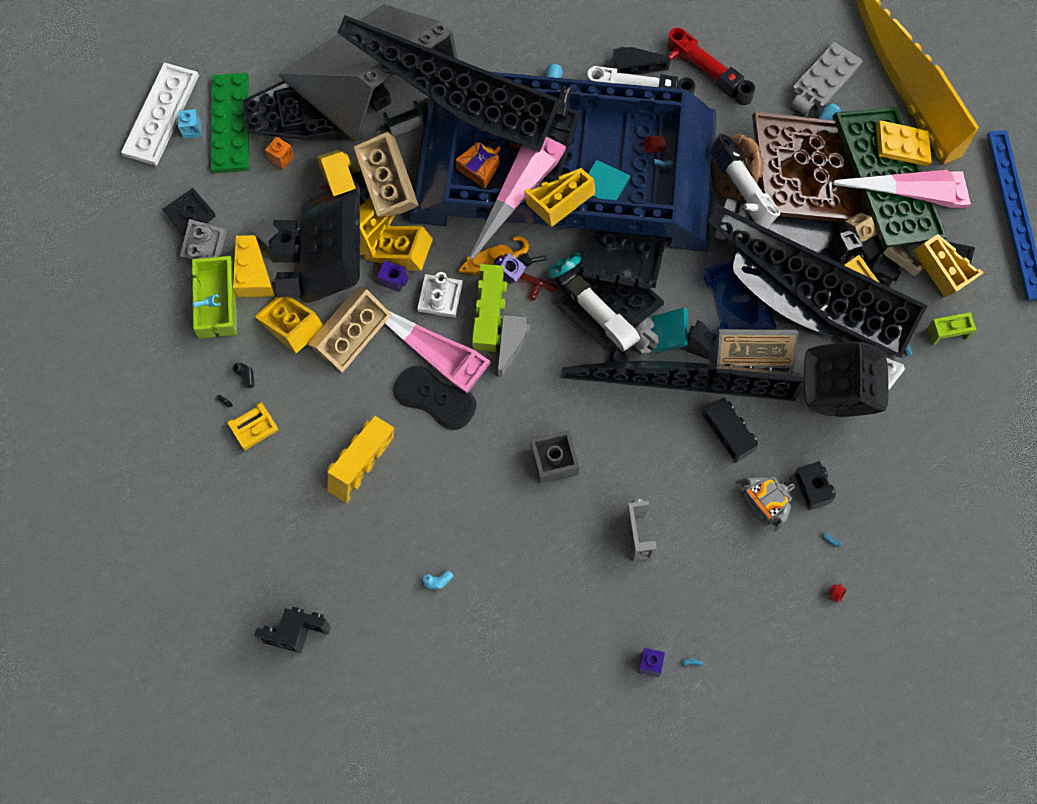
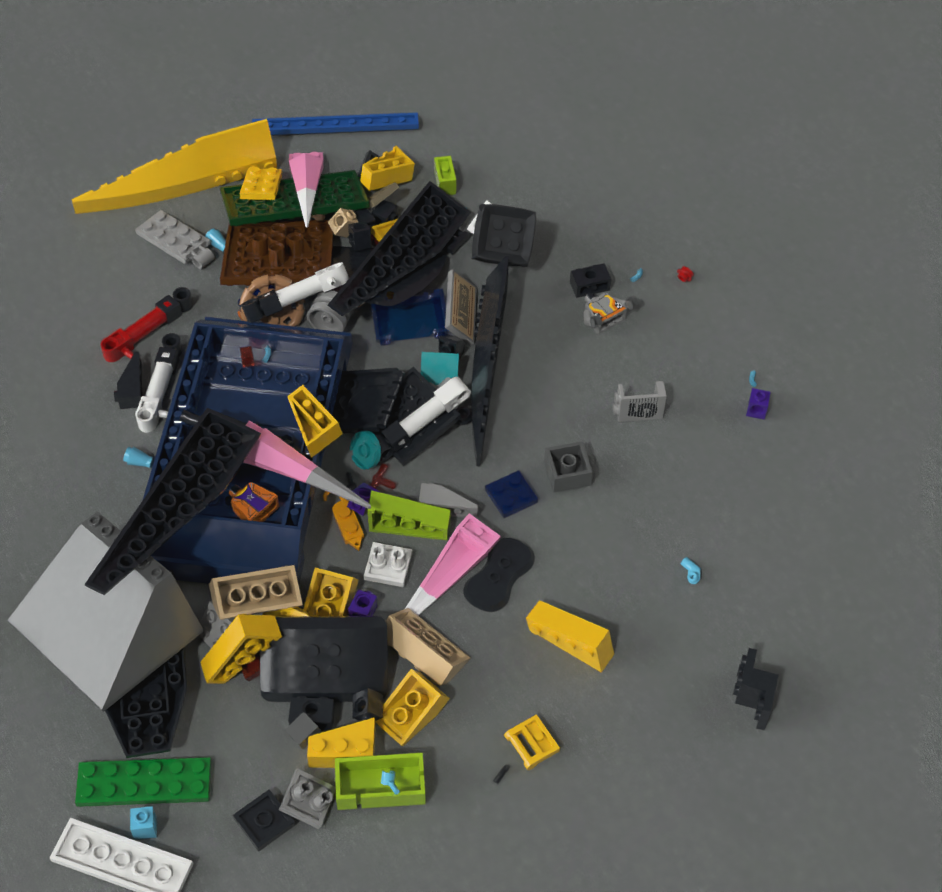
camera: 90 degrees left, 15 degrees down
(245, 372) = (469, 751): black arm -> none
(279, 153) = (197, 721): orange brick -> none
(526, 406) = (511, 494): none -> clear blue plate
(608, 181) = (277, 402): teal tile -> none
(730, 429) = (538, 335): black brick -> none

